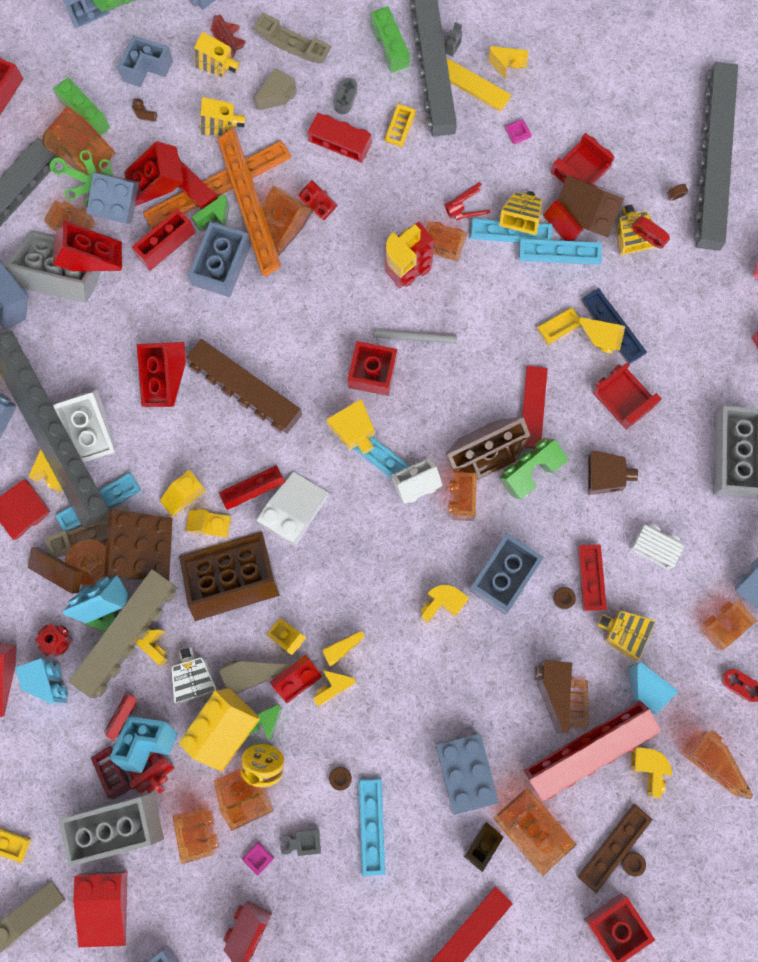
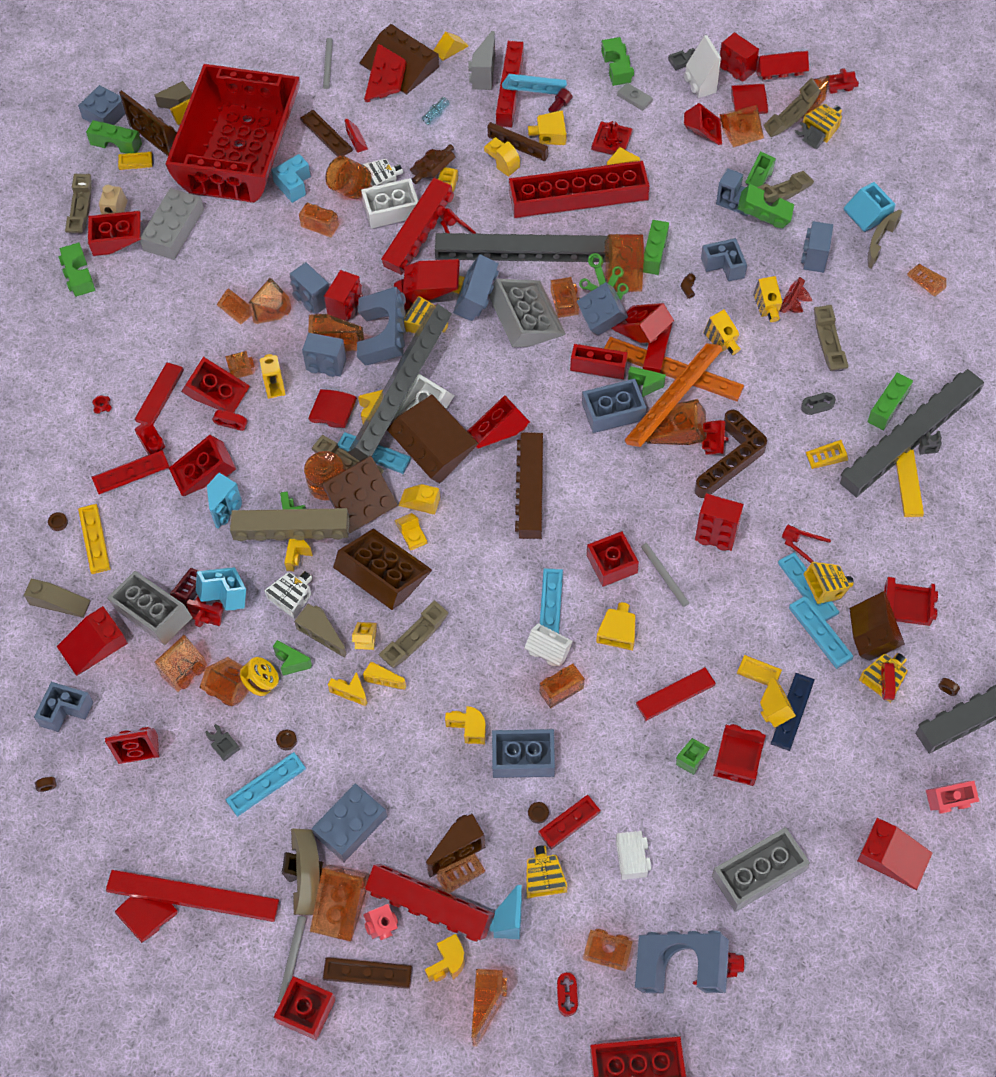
camera: 55 degrees right, 15 degrees down
(55, 570) = (303, 453): reddish brown tile -> none
(60, 640) = (255, 488): red brick -> none
(85, 249) = (549, 319): red slope -> none
(97, 600) = (299, 489): medium azure slope -> none
(120, 715) = (240, 563): red plate -> none
(129, 439) = (432, 438): none -> reddish brown slope
(219, 729) = (265, 629): yellow slope -> none
(251, 487) = (458, 540): red plate -> none
(257, 858) = (191, 721): dark pink tile -> none
(275, 91) = (778, 355): dark tan slope -> none
(292, 509) = (463, 577): white slope -> none
(295, 679) = (337, 659): red plate -> none
(319, 592) = (415, 636): none -> dark tan slope
(340, 137) = (780, 420): red brick -> none
(351, 198) = (735, 458): none -> reddish brown beam
(353, 427) = (556, 574): yellow torso -> none
(398, 251) = (706, 501): yellow brick -> none
(440, 410) = (618, 628): none -> yellow torso
(447, 241) = (757, 543): clear orange brick -> none
(489, 447) = (613, 679): wedge -> none
(489, 842) = (307, 871): none -> dark tan slope
(502, 57) = (950, 489): yellow slope -> none
(518, 131) = (897, 539): dark pink tile -> none
(518, 477) = (641, 723): bright green arch -> none
(559, 910) = (292, 956): none -> light grey bar
(563, 221) = (847, 617): red tile -> none
(580, 807) = (380, 922): none -> coral brick
(602, 433) = (691, 756): none -> bright green slope
(608, 473) = (663, 780): reddish brown torso -> none
(634, 864) = (364, 995): reddish brown tile -> none

